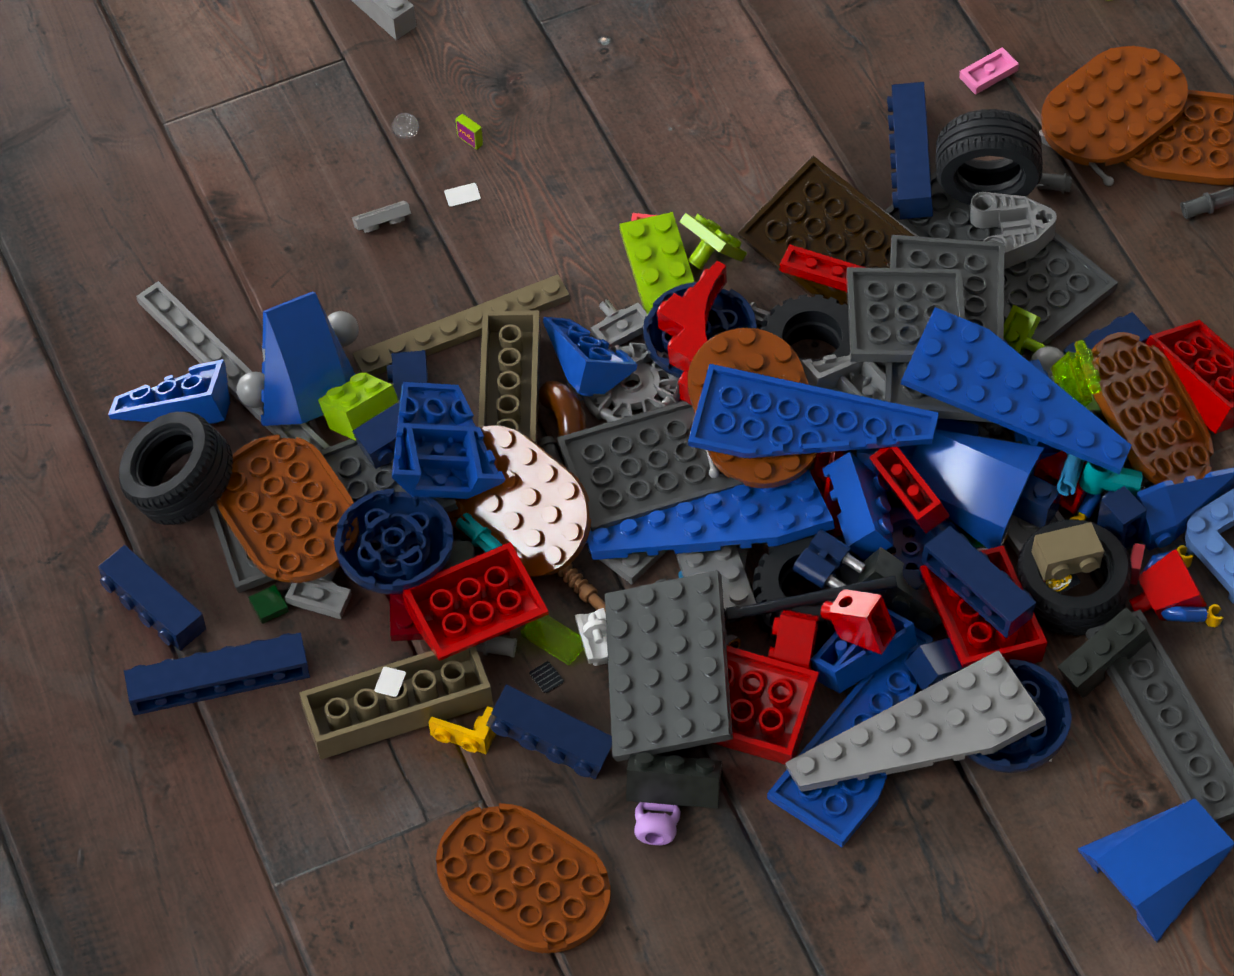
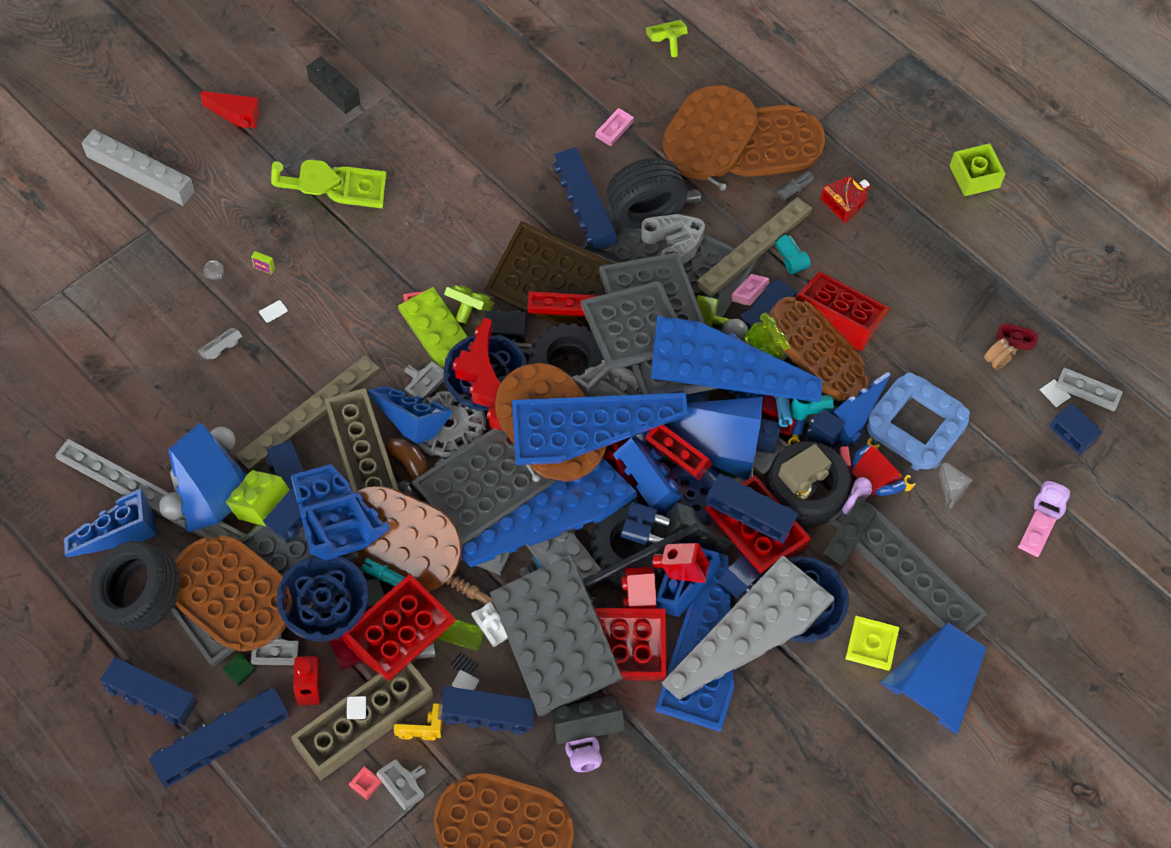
camera: 25 degrees left, 5 degrees up
(346, 627) = (307, 676): none -> red torso
(374, 778) = (365, 783): none -> coral tile
(417, 790) = (402, 783): none -> light grey plate
(542, 694) = (465, 681): none -> white sticker
(601, 59) = (341, 184): none -> lime plate
(752, 282) = (508, 324): none -> black brick
(1084, 797) = (872, 643): none -> neon yellow plate
(1091, 318) = (750, 289): none -> bright pink plate
(1118, 265) = (753, 247): none -> dark tan plate
(1138, 601) = (860, 490): none -> lavender piece
(1169, 294) = (794, 259): none -> teal piece

